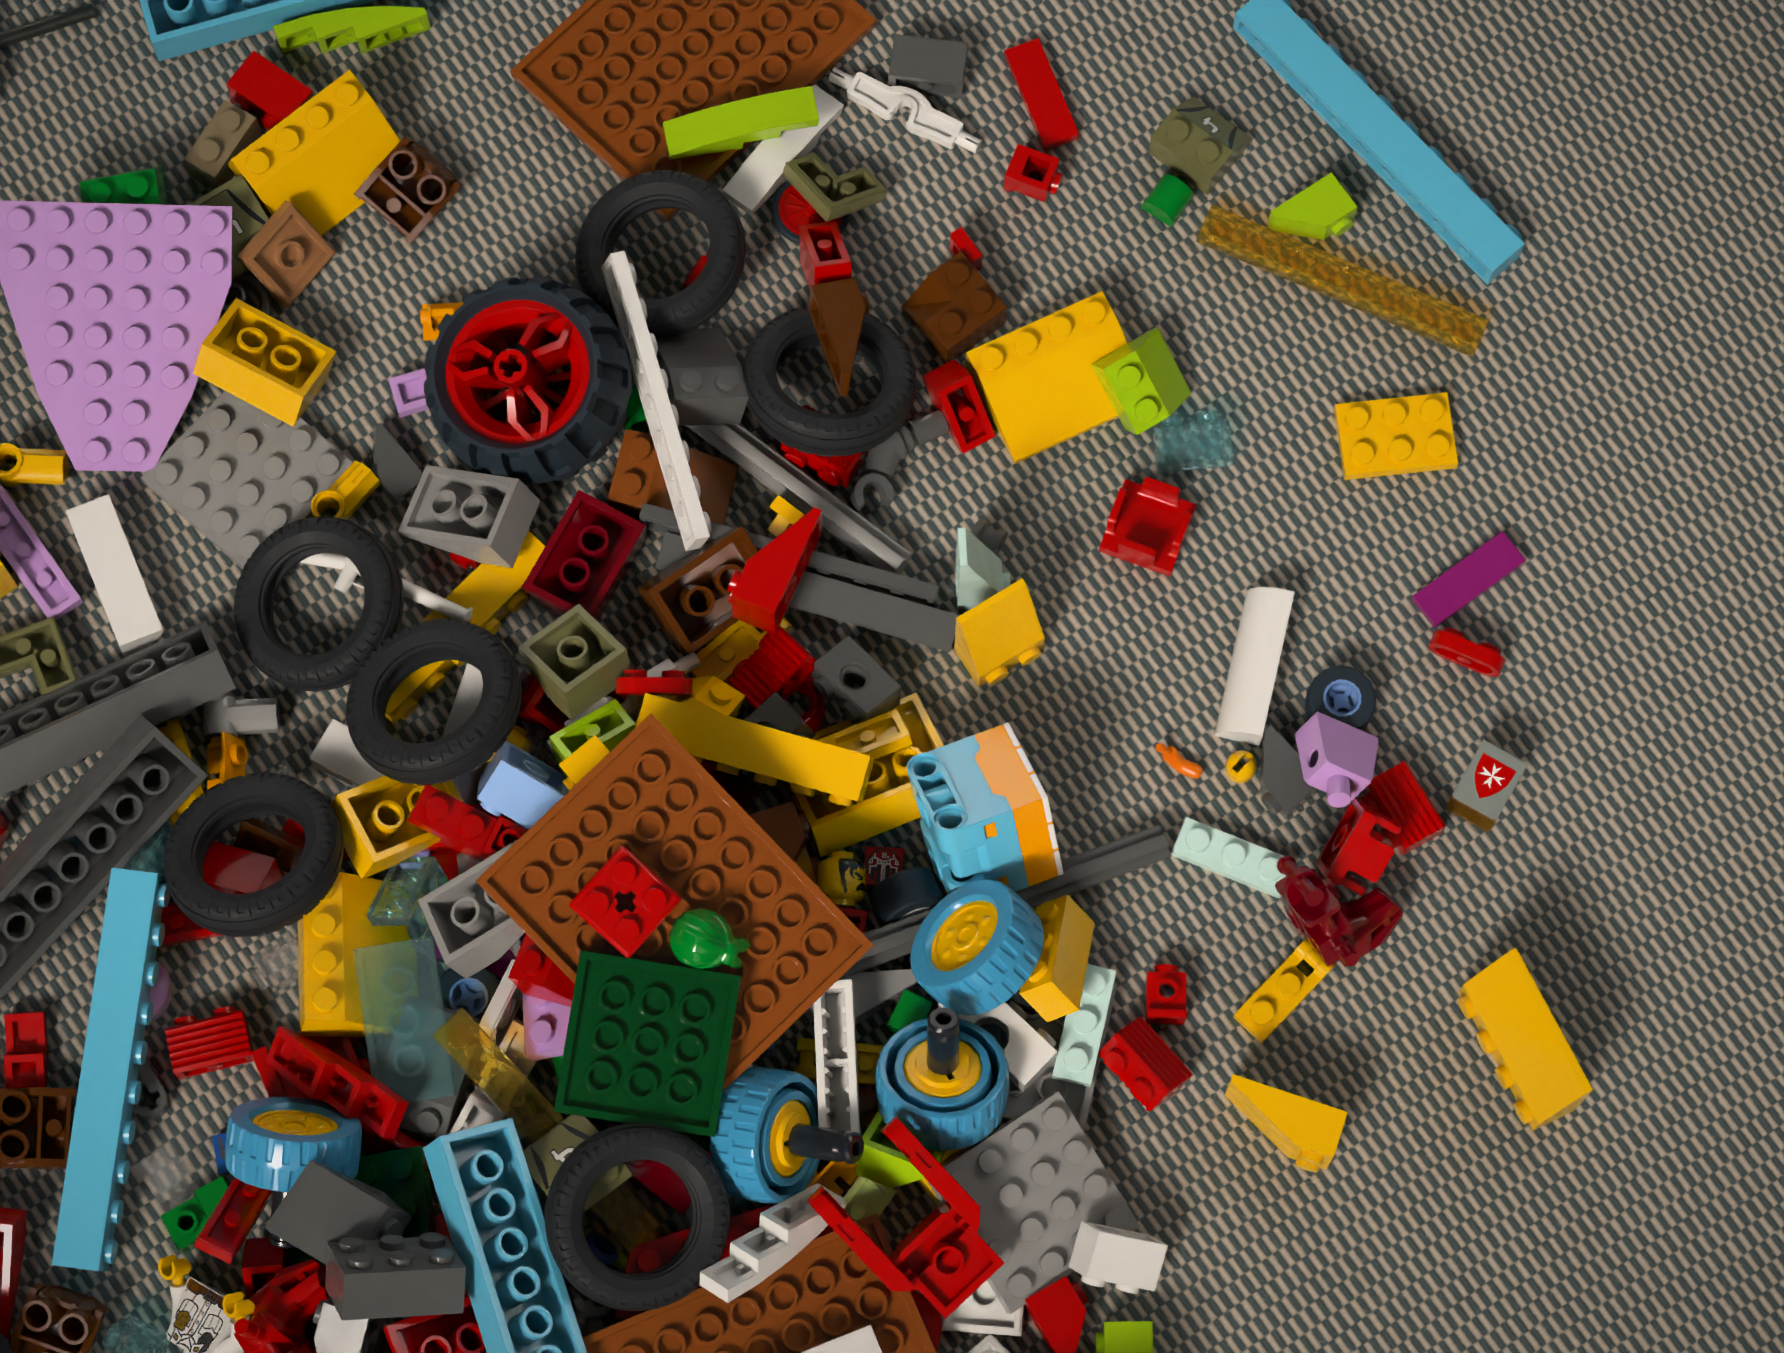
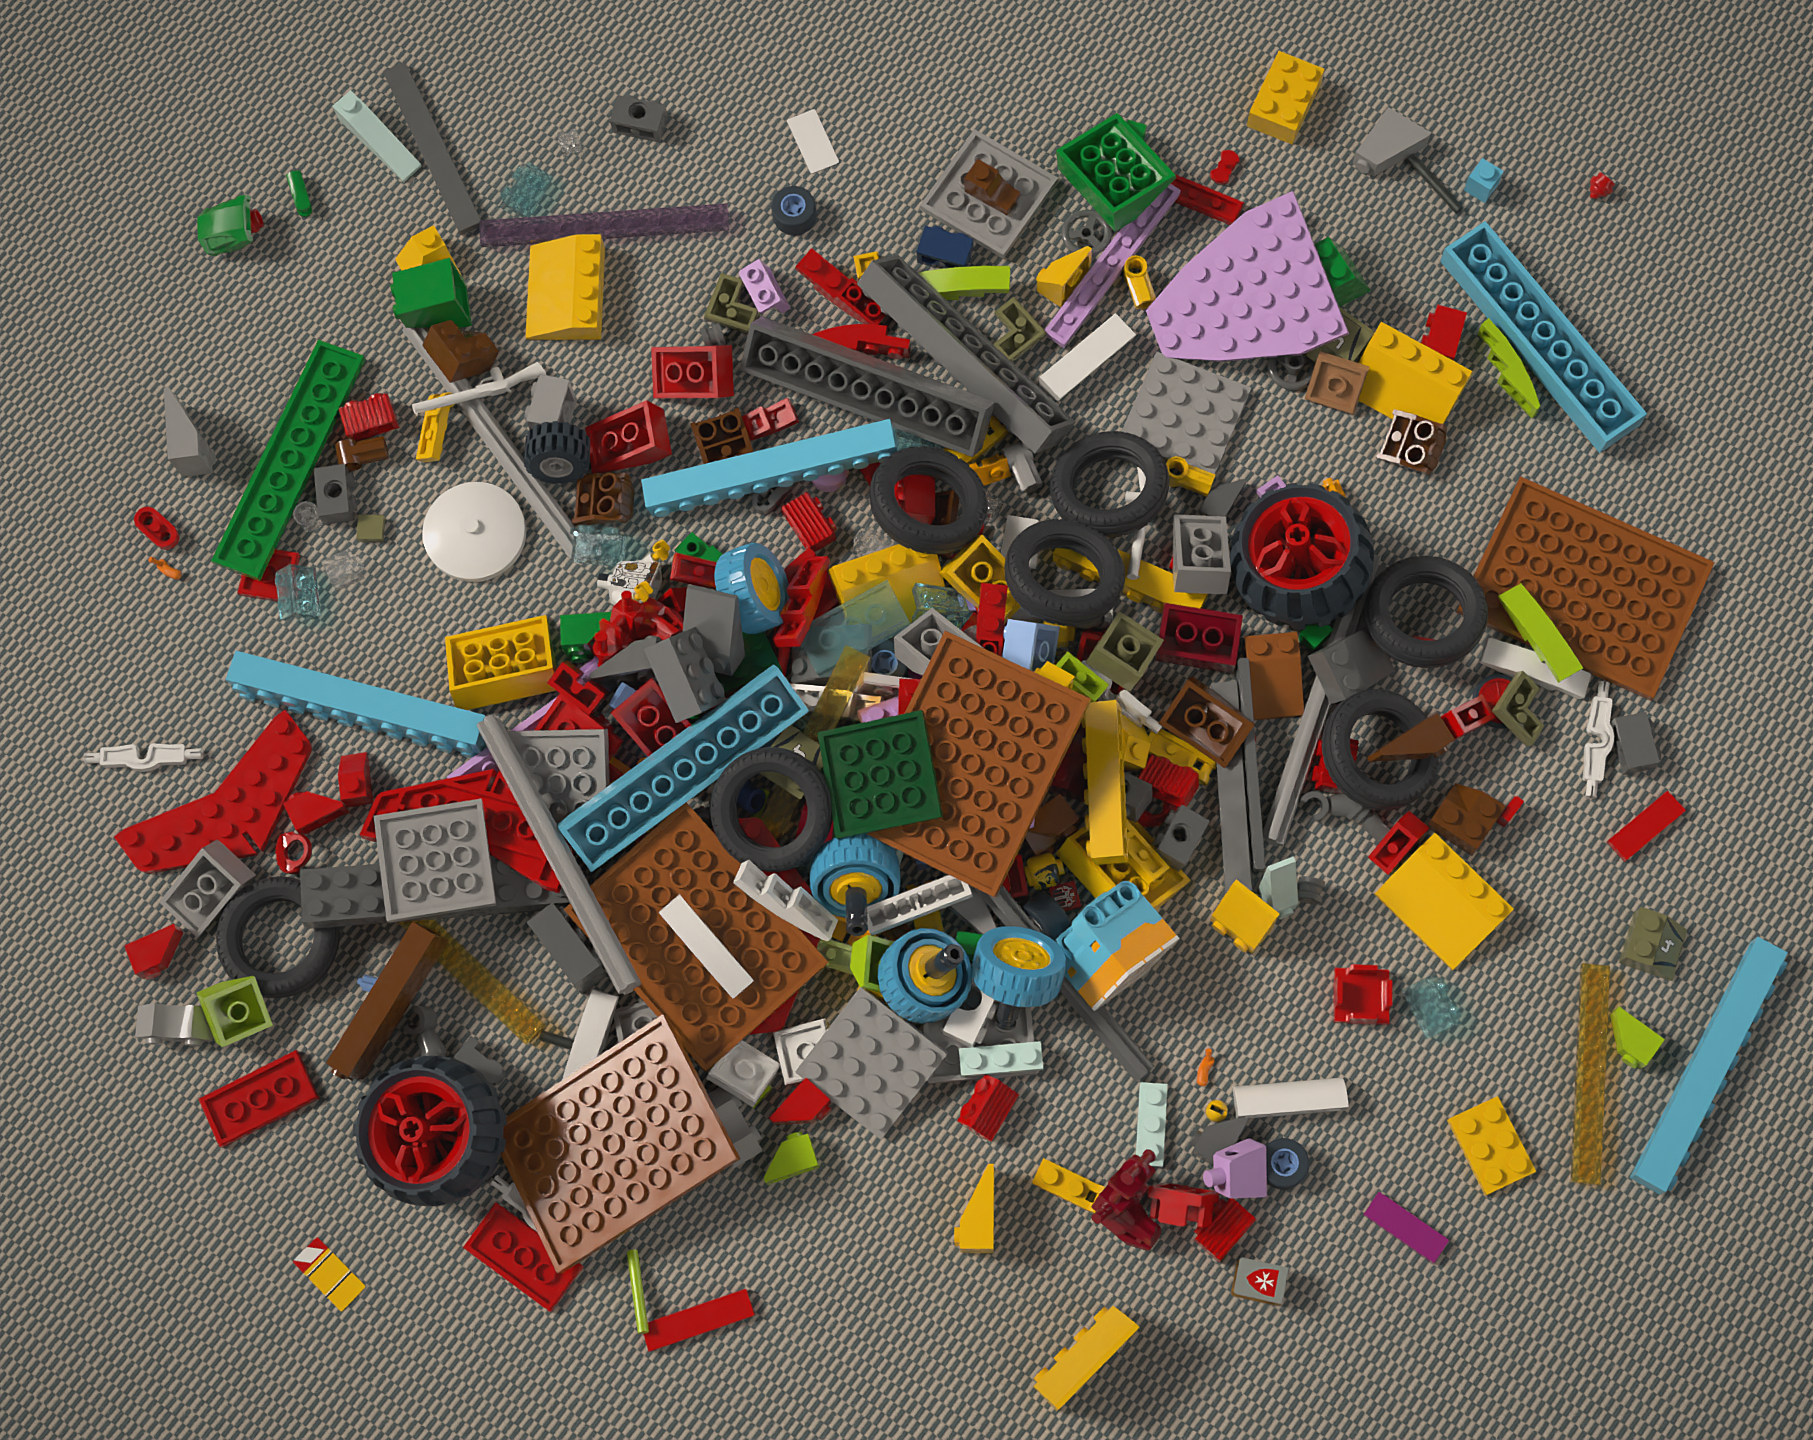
camera: 80 degrees right, 0 degrees up
(167, 1177) = (718, 528): clear brick -> none
(220, 141) = (1399, 315): dark tan brick -> none
(264, 362) = (1257, 394): yellow brick -> none
(652, 900) = (977, 717): red brick -> none
(659, 412) = (1309, 647): white plate -> none
(670, 684) = (1123, 695): red plate -> none
(705, 940) = (956, 786): green piece -> none
(773, 574) = (1225, 755): red slope -> none
(786, 516) = (1276, 756): yellow tile -> none
(942, 1254) = (810, 1010): red plate -> none
(1028, 163) = (1587, 829): red brick -> none
(1060, 973) = (1036, 1026): yellow brick -> none
(1117, 1257) = (852, 1129): white brick -> none
(1142, 382) = (1461, 958): lime slope -> none
(1163, 1009) = (1035, 1117): red brick -> none
(1168, 199) = (1602, 936): green brick -> none
(1478, 657) = (1352, 1229): red plate -> none

